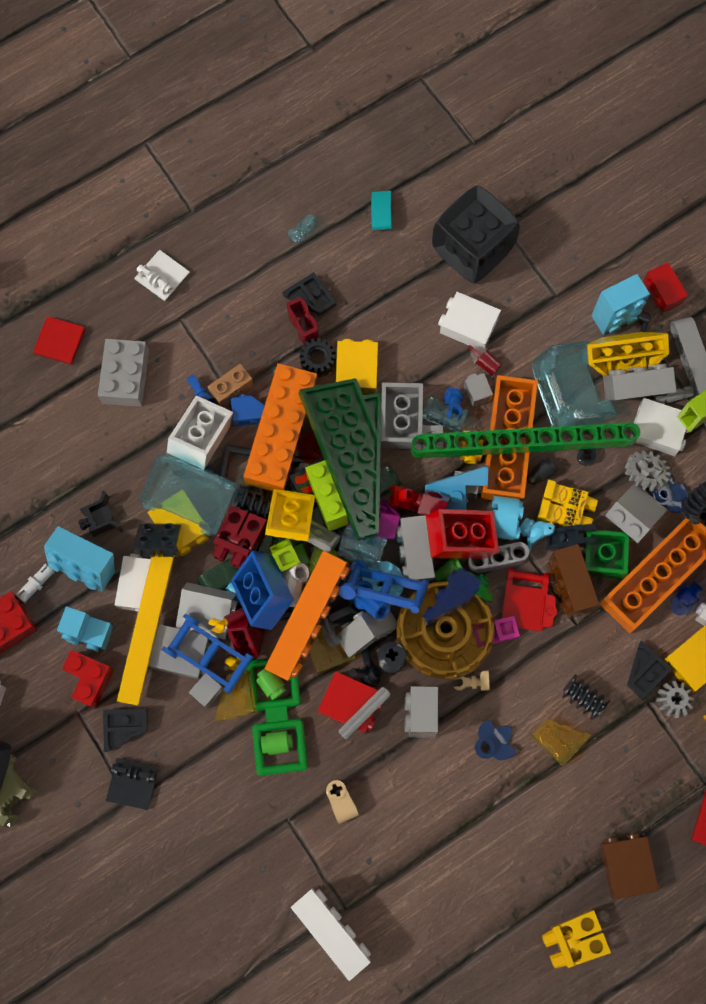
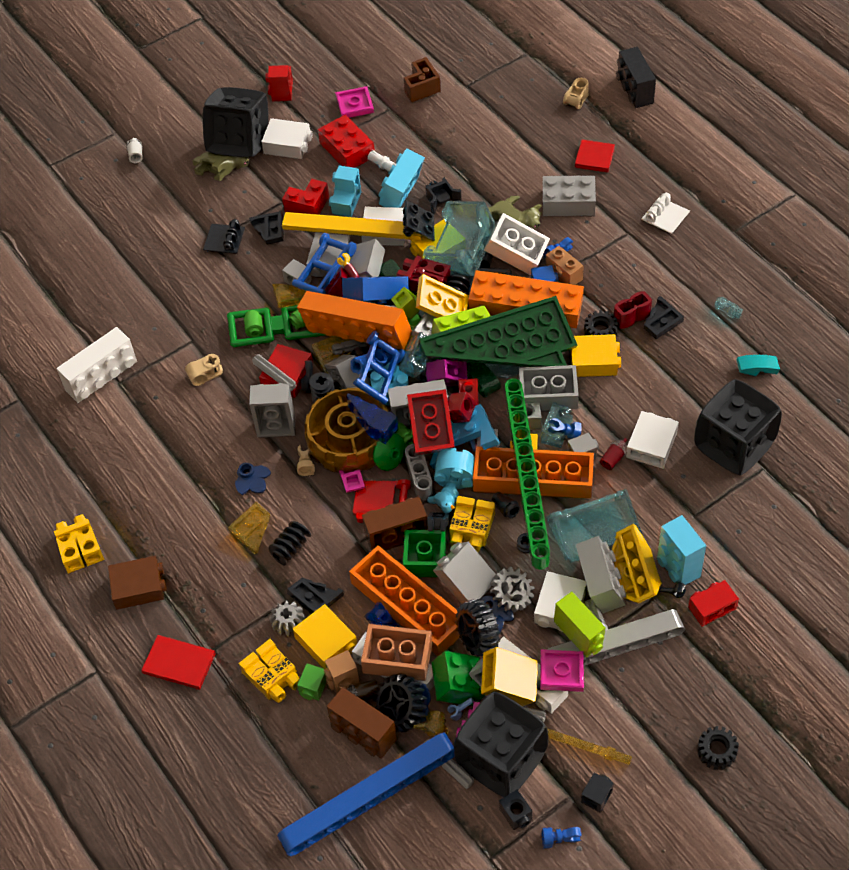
camera: 90 degrees right, 20 degrees down
(147, 439) = (529, 217): none -> olive animal

